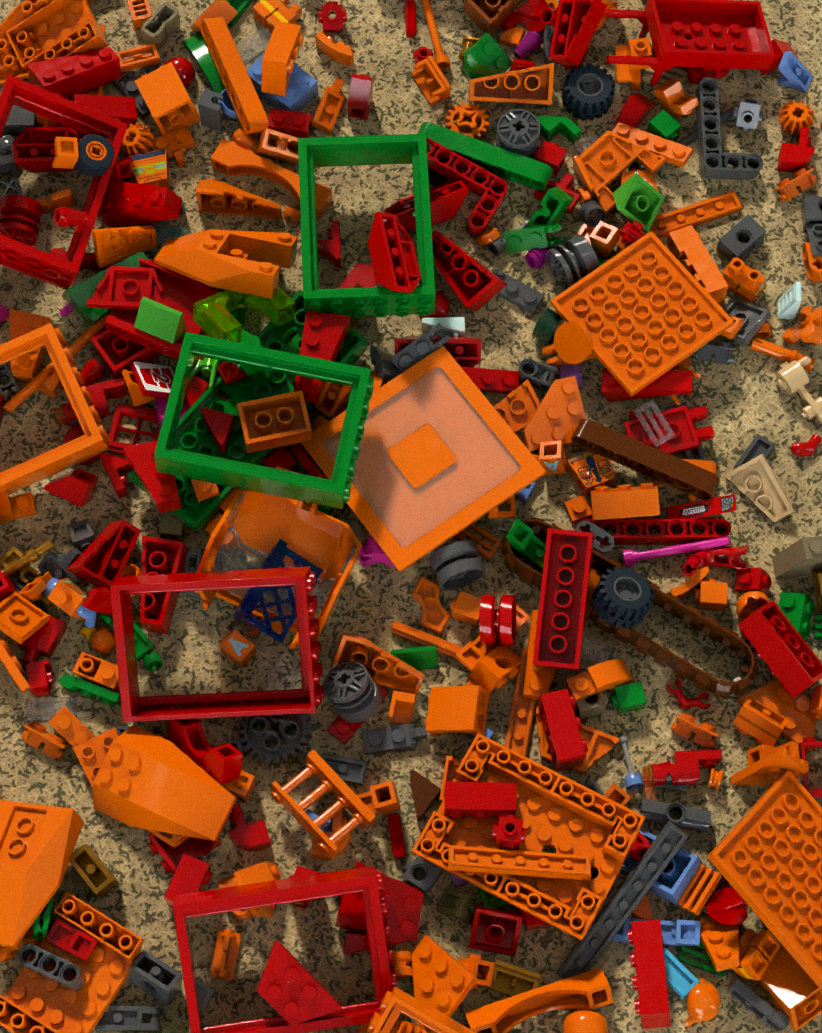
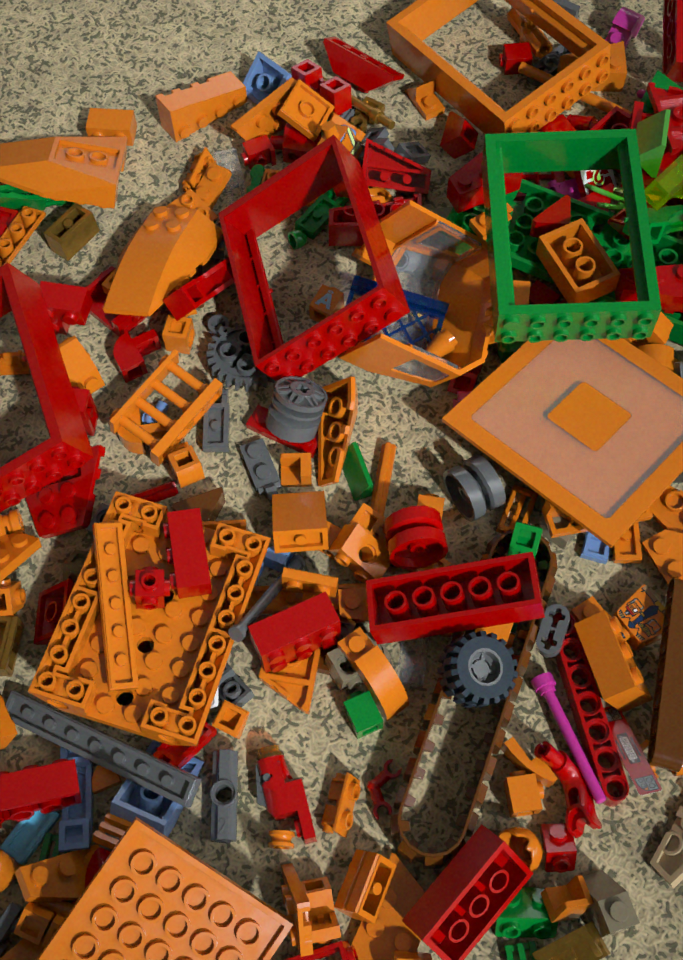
camera: 80 degrees right, 5 degrees down
(316, 559) = (442, 343): none -> orange cone
(434, 615) = (417, 482): orange tile -> none
(520, 716) = (308, 583): none -> orange hinge
(553, 457) = (642, 568): orange brick -> none
(560, 768) = (238, 631): none -> dark grey bar
(633, 779) = (262, 737): hinge -> none
(795, 582) = (568, 900): none -> orange panel

